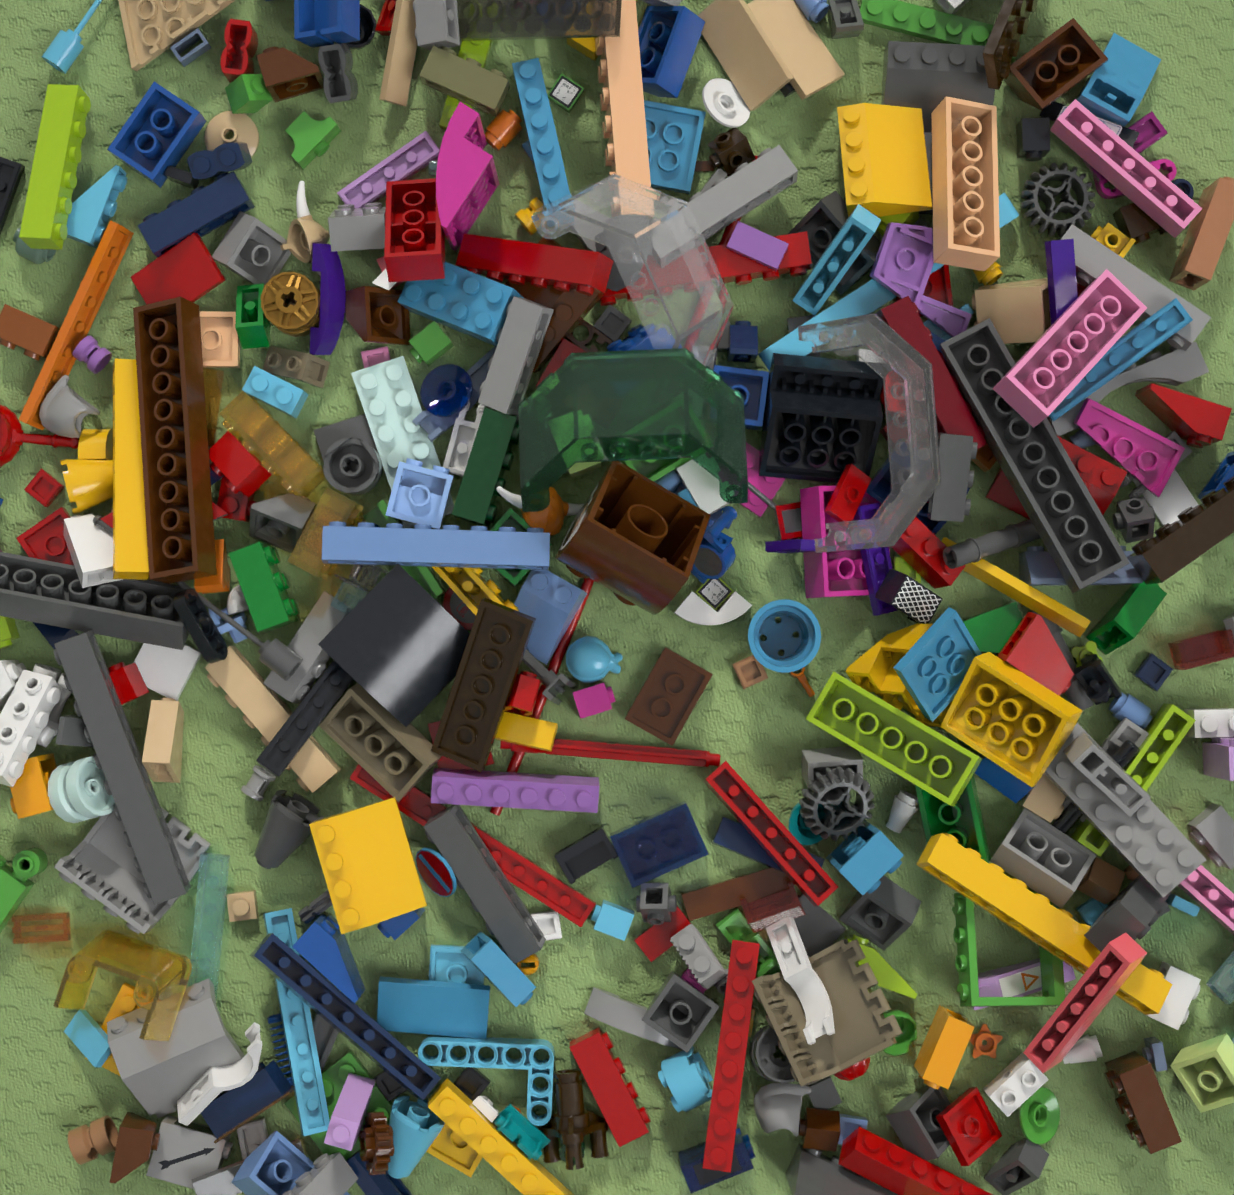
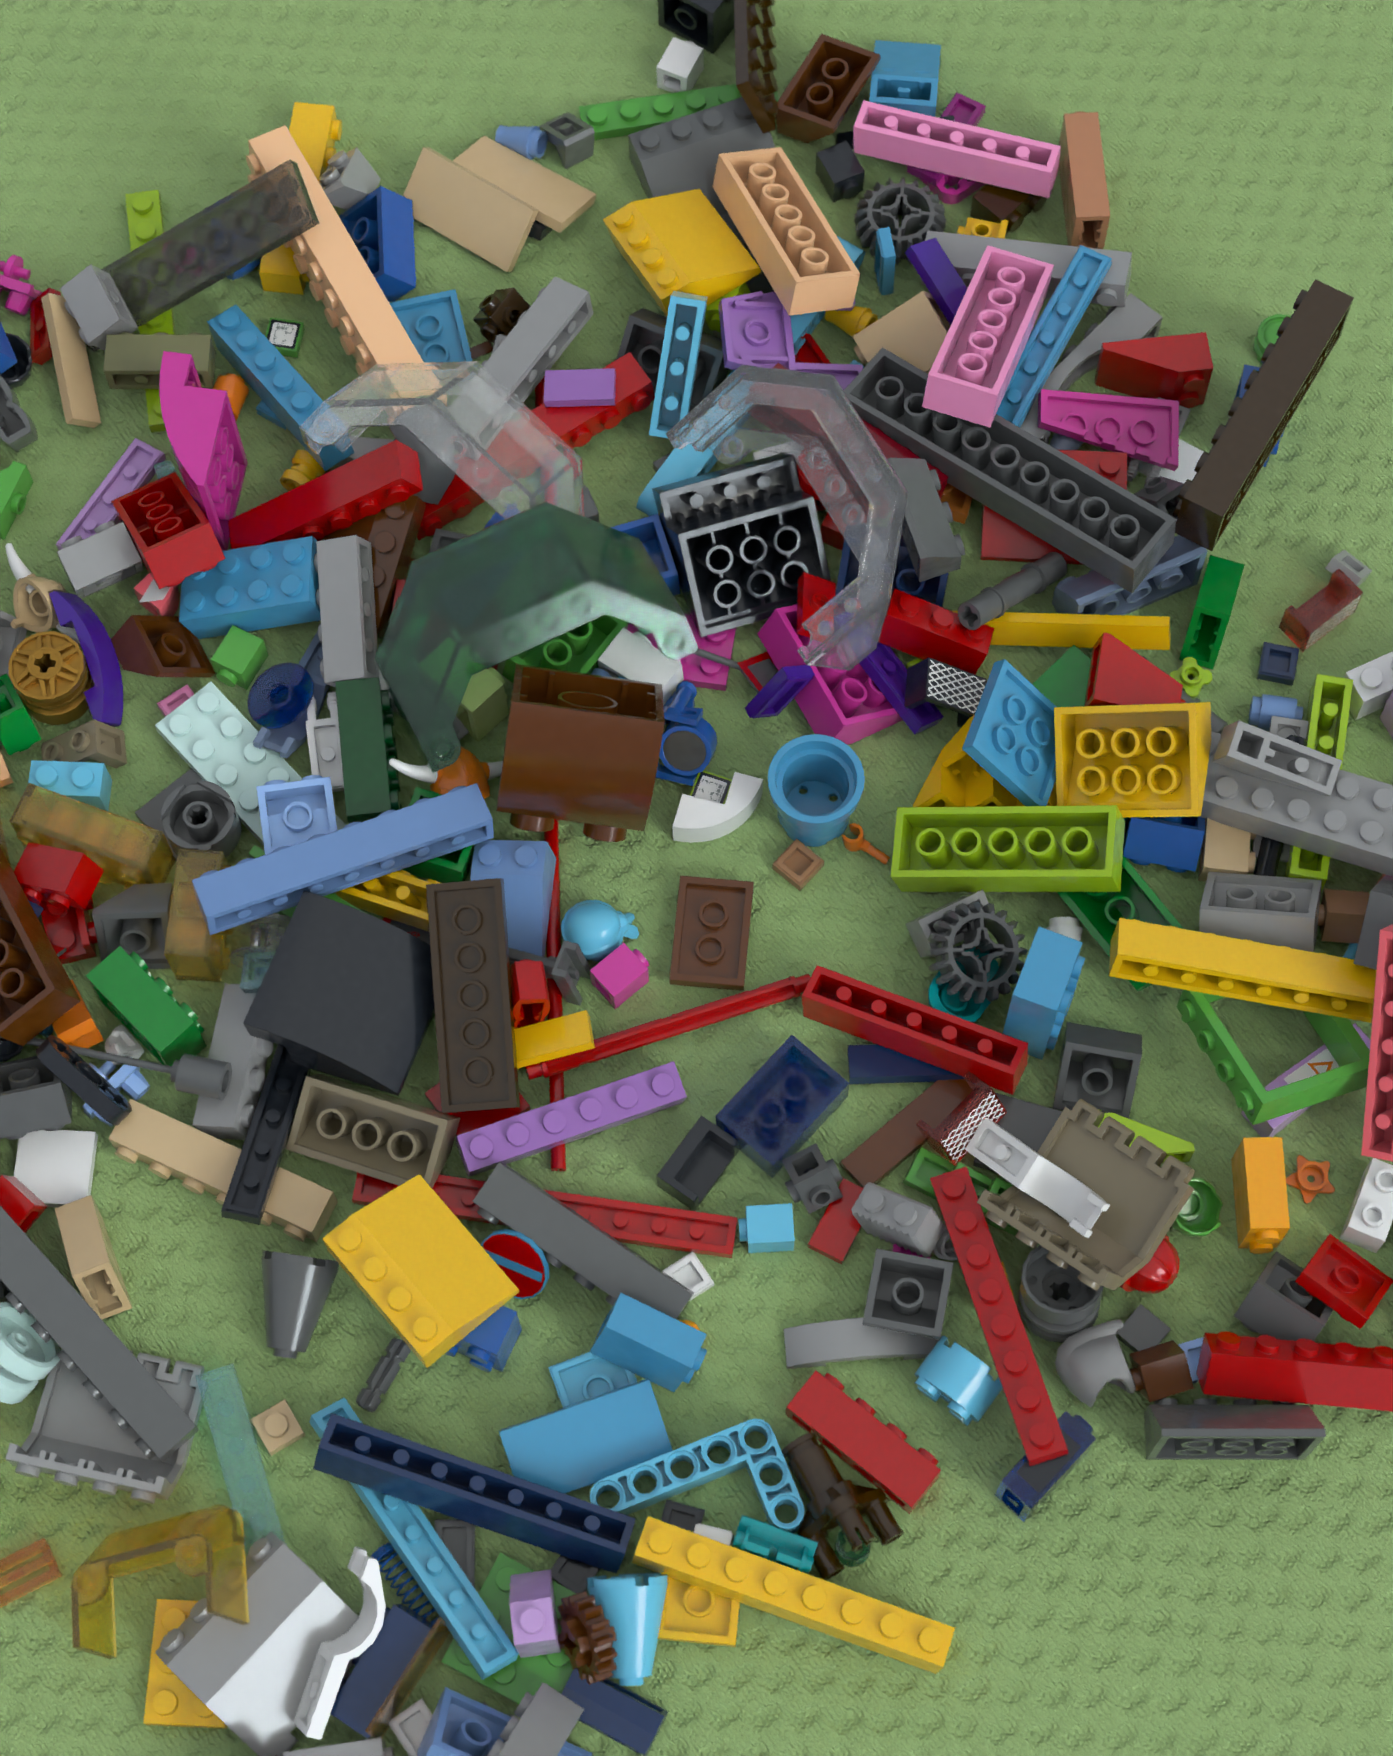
camera: 20 degrees left, 20 degrees down
(89, 1038) = (139, 1687): medium azure tile -> none
(258, 783) = (235, 1258): light grey bush -> none
(330, 954) = (411, 1415): blue slope -> none
(725, 103) = (473, 272): white dish -> none
(742, 342) = (614, 502): dark blue slope -> none
(1029, 234) = (884, 261): none -> dark azure tile
(1097, 680) = (1214, 686): black hips -> none

